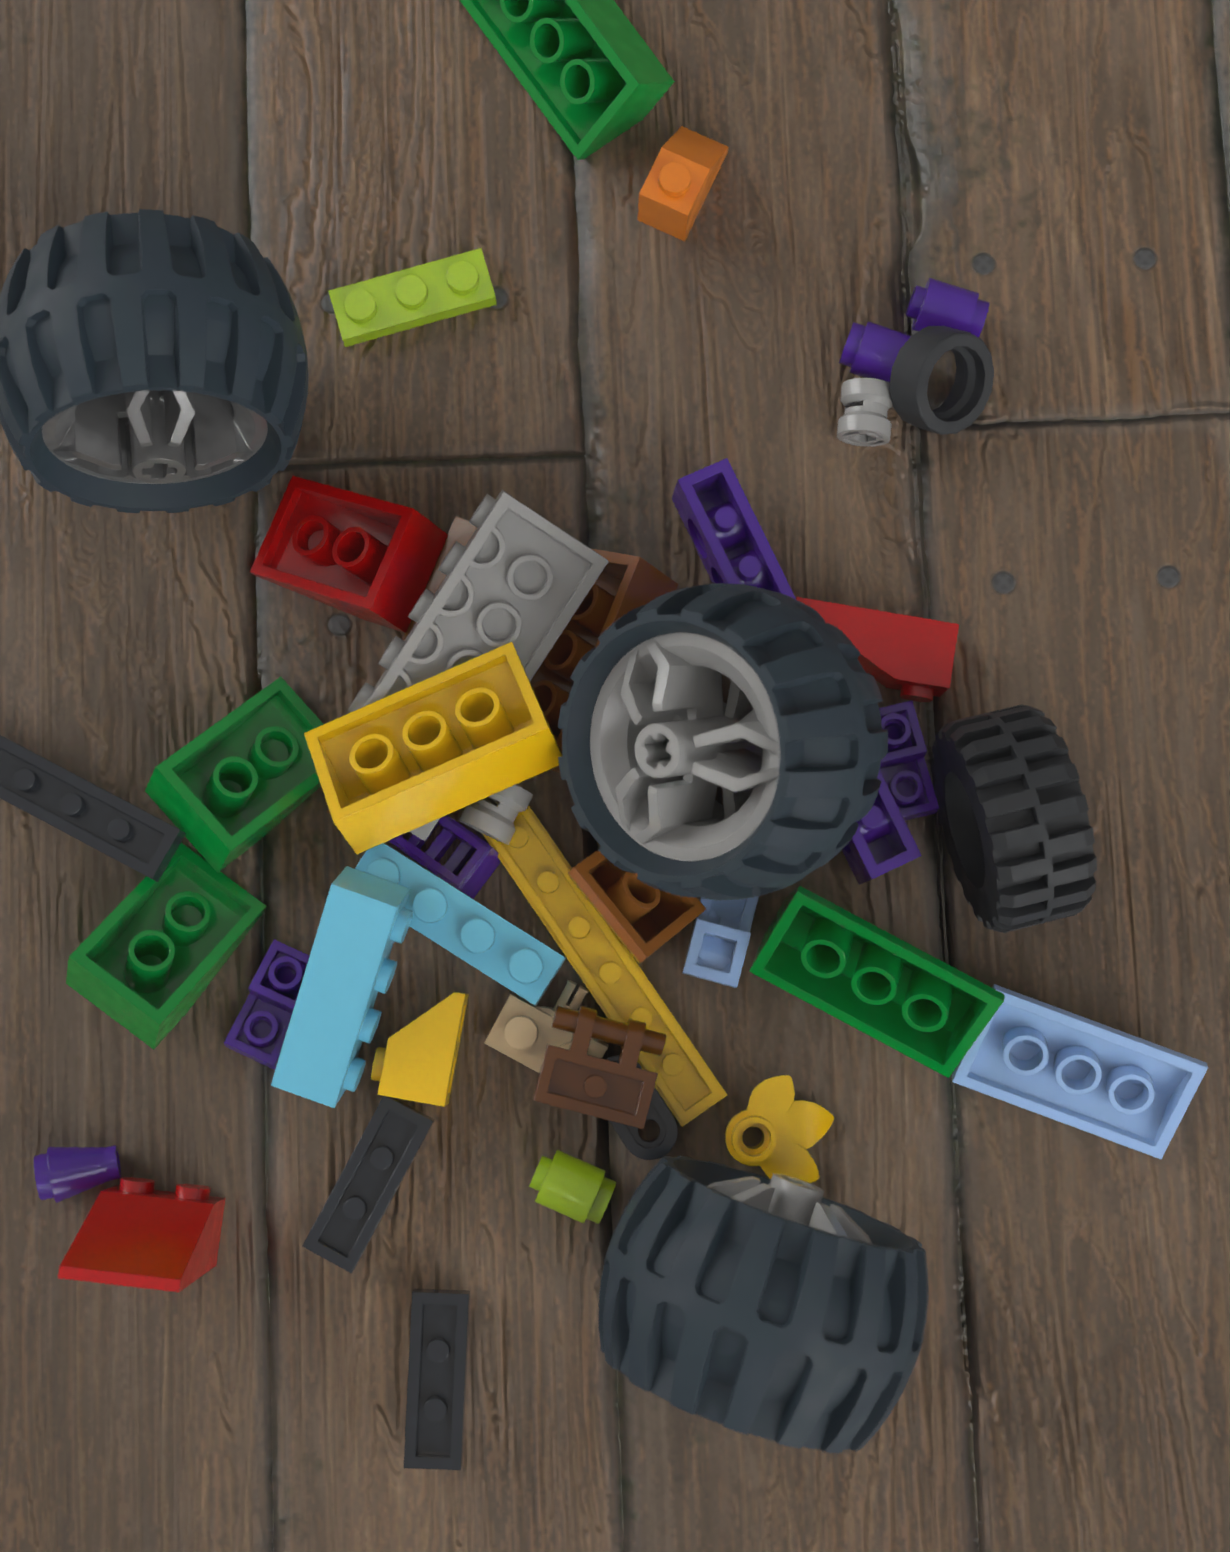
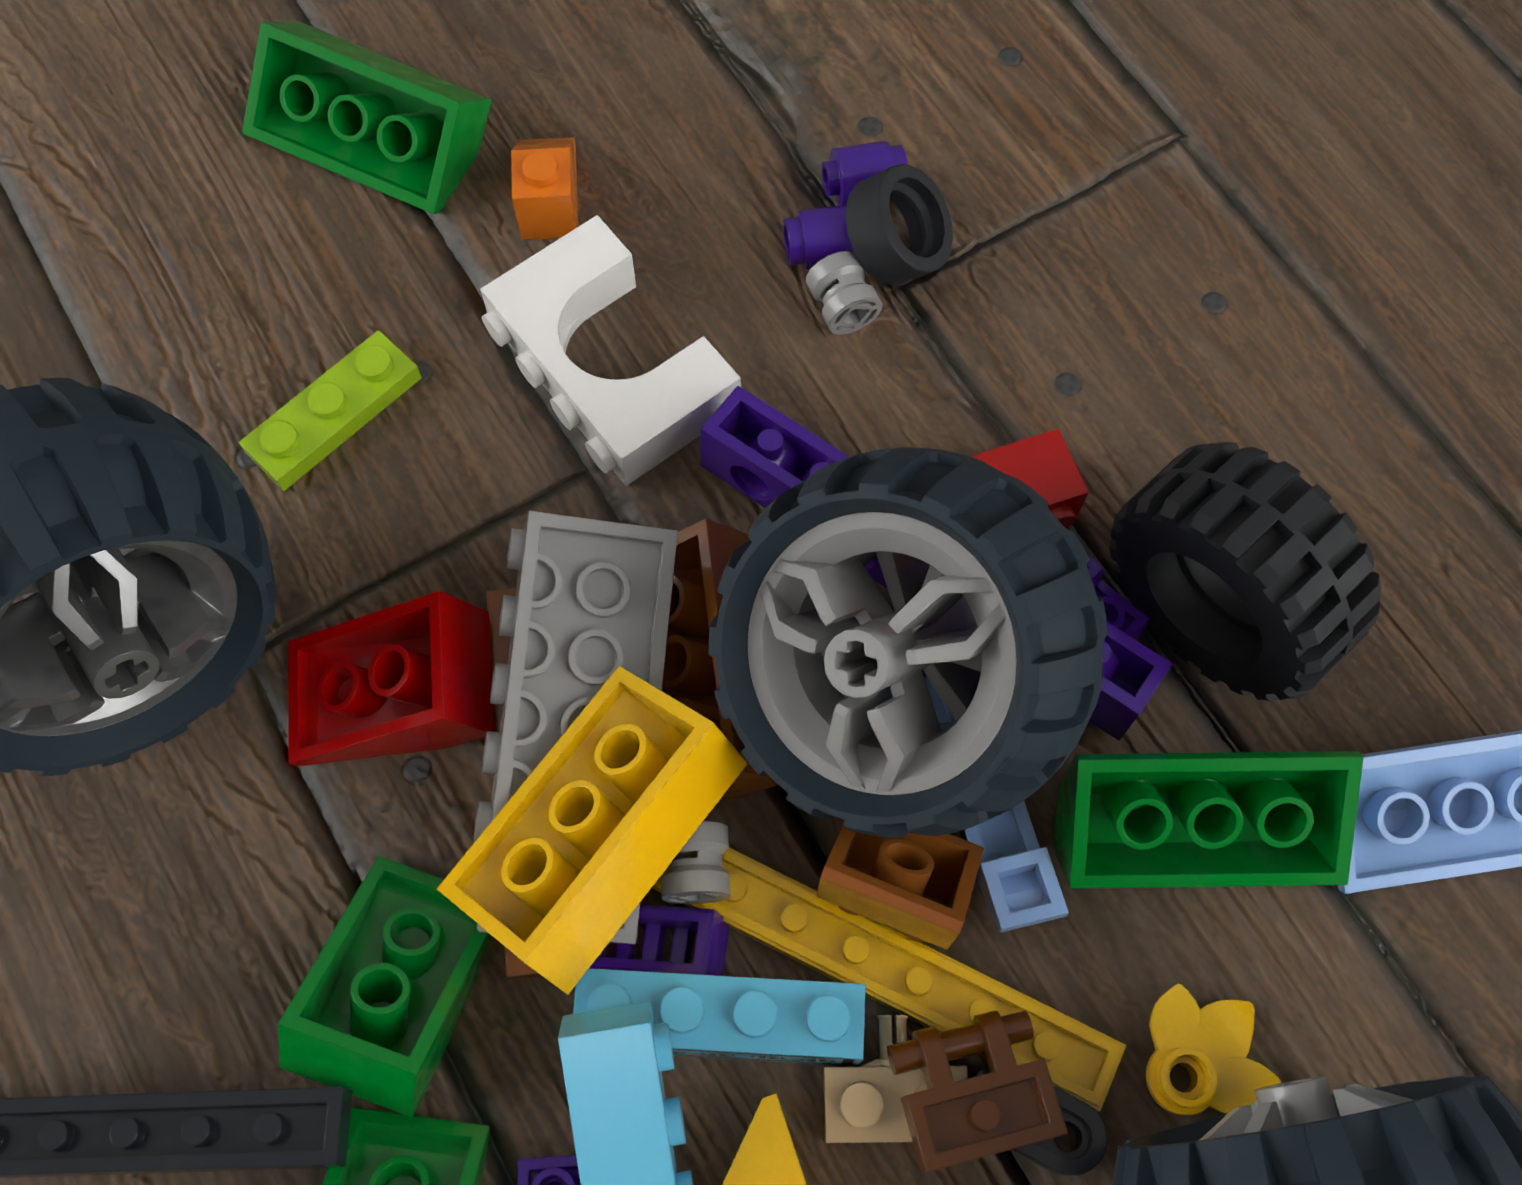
camera: 25 degrees left, 15 degrees down
(613, 299) = (626, 421): none -> white arch

